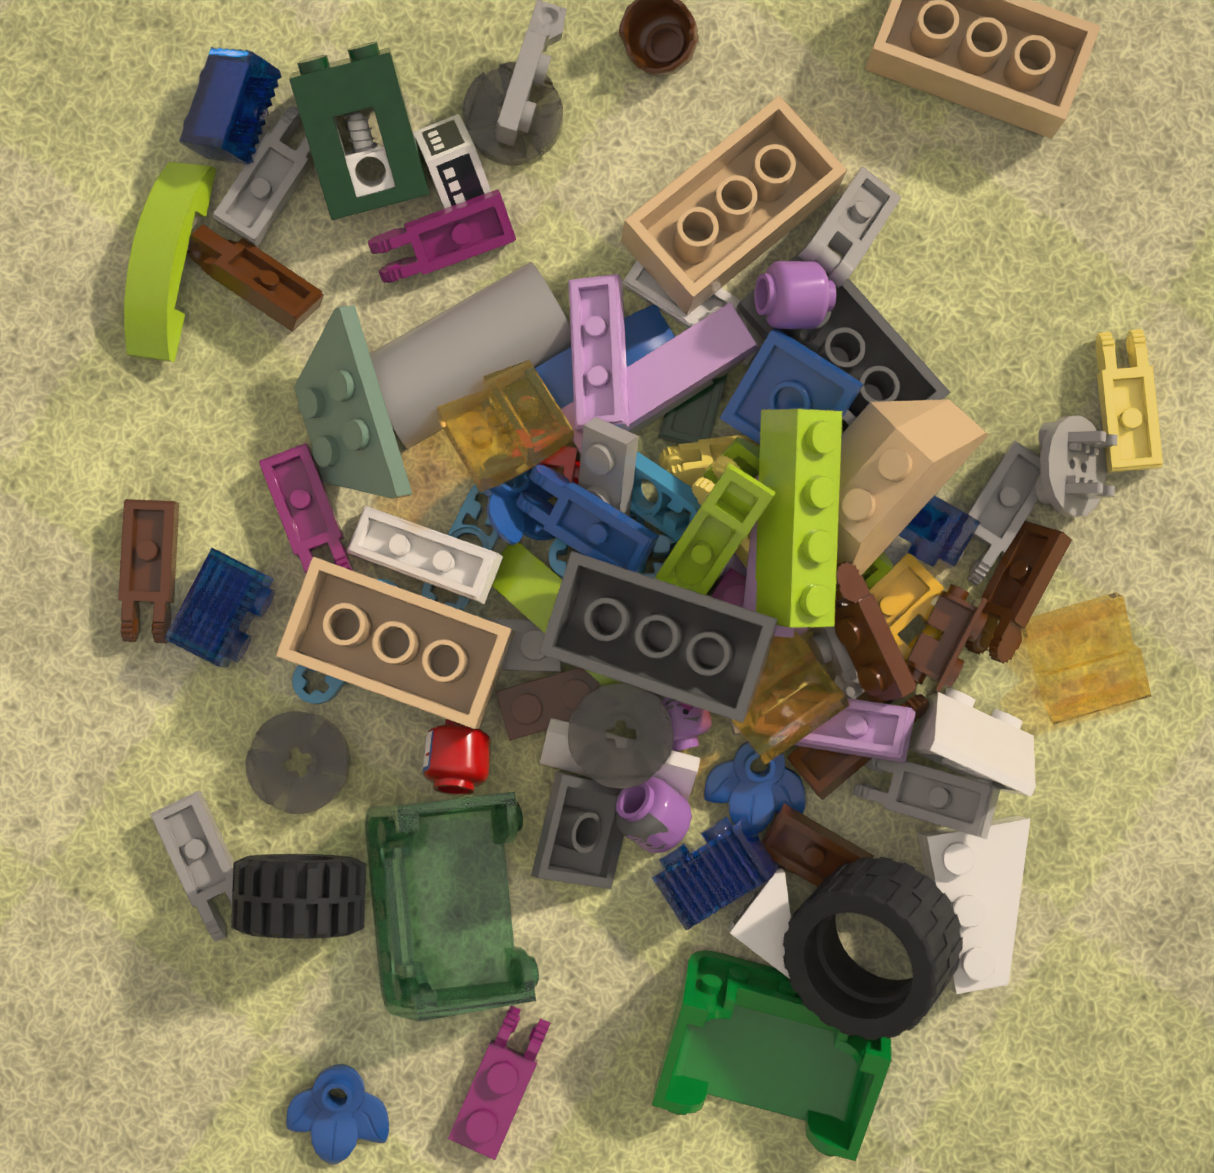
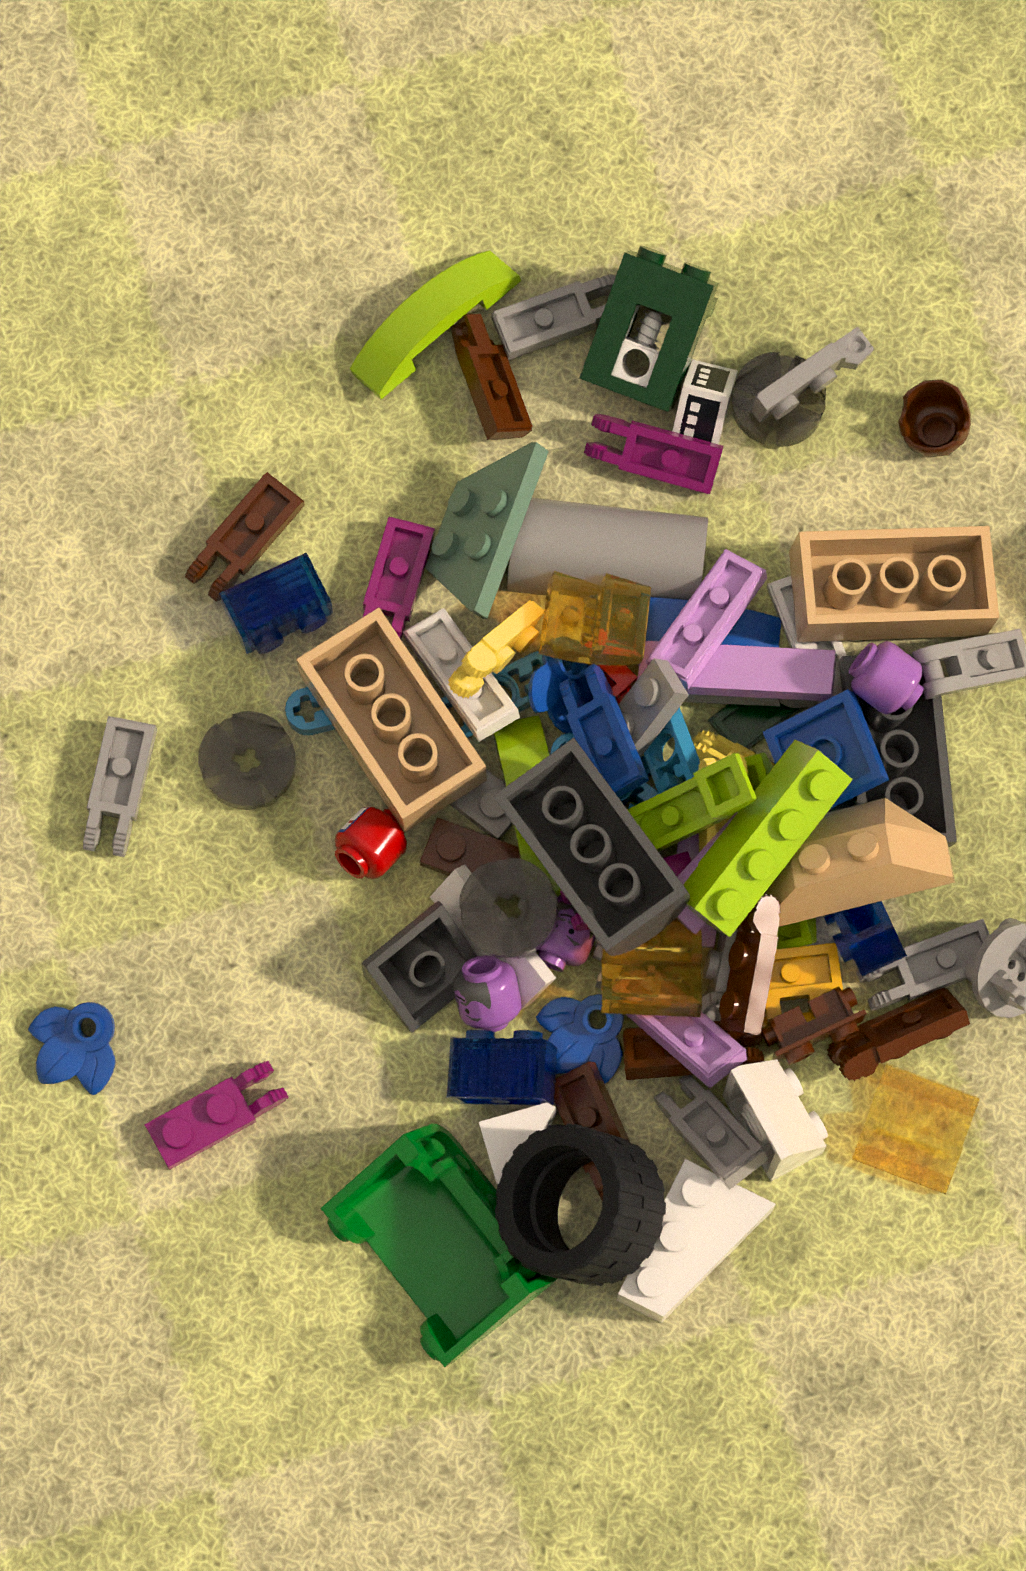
camera: 30 degrees right, 10 degrees down
(230, 105) = (567, 242): clear blue brick -> none
(298, 896) = (176, 850): black tyre -> none
(440, 516) = (496, 649): none -> light yellow hinge
(446, 906) = (281, 943): clear green windscreen -> none

